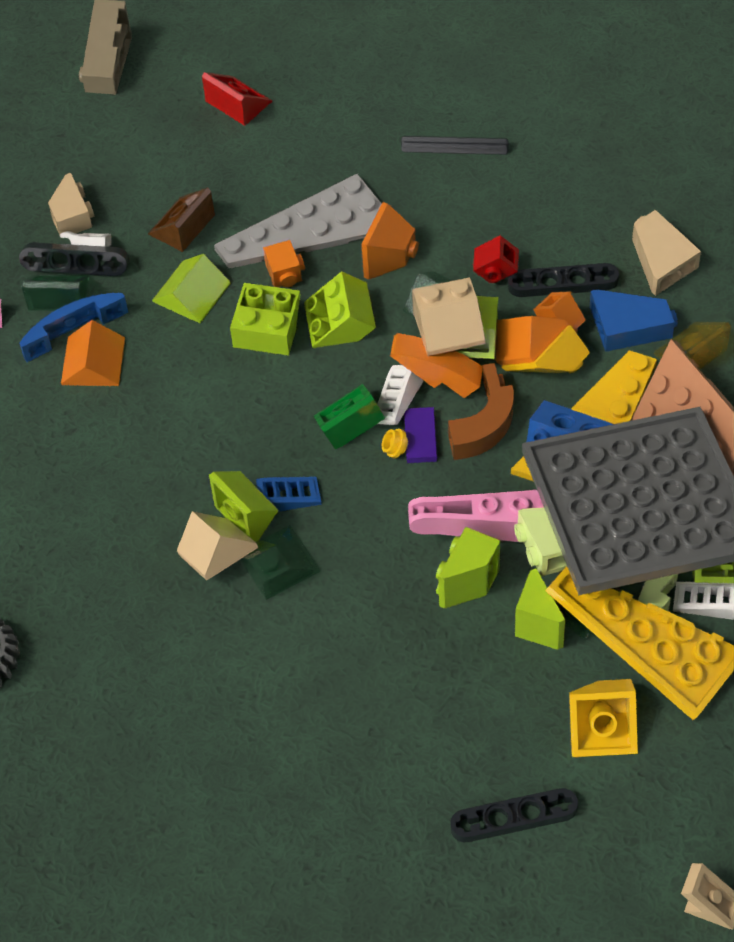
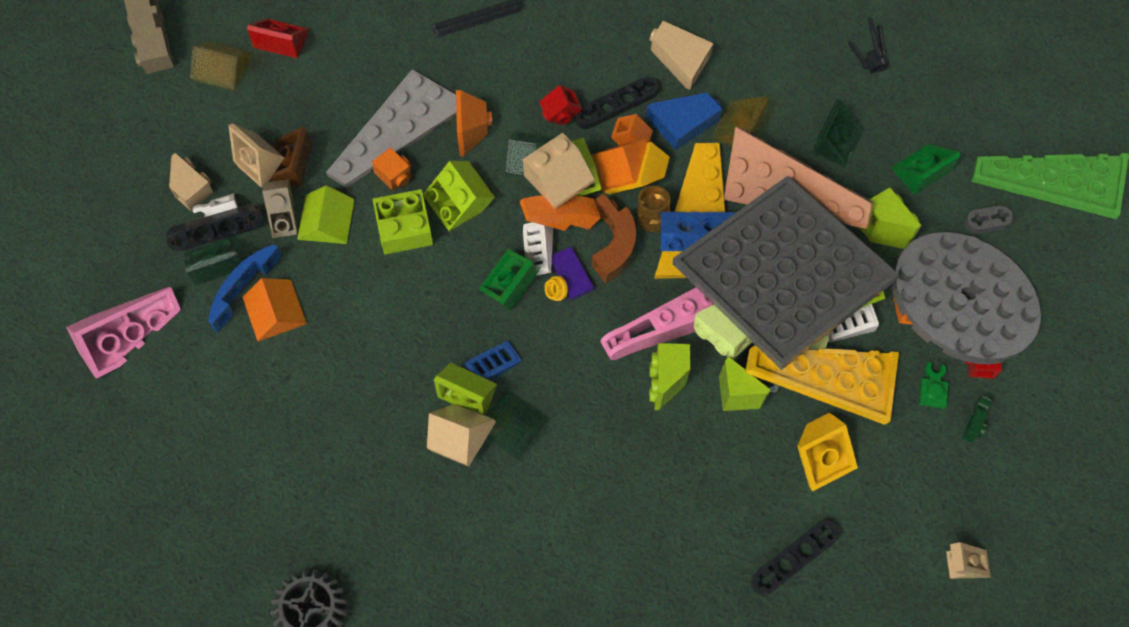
camera: 30 degrees left, 10 degrees up
(148, 200) = (253, 154): none -> tan slope
(148, 262) = (280, 208): none -> dark tan slope
(160, 105) = (218, 64): none -> clear yellow slope
(539, 387) = (651, 203): none -> pearl gold wheel

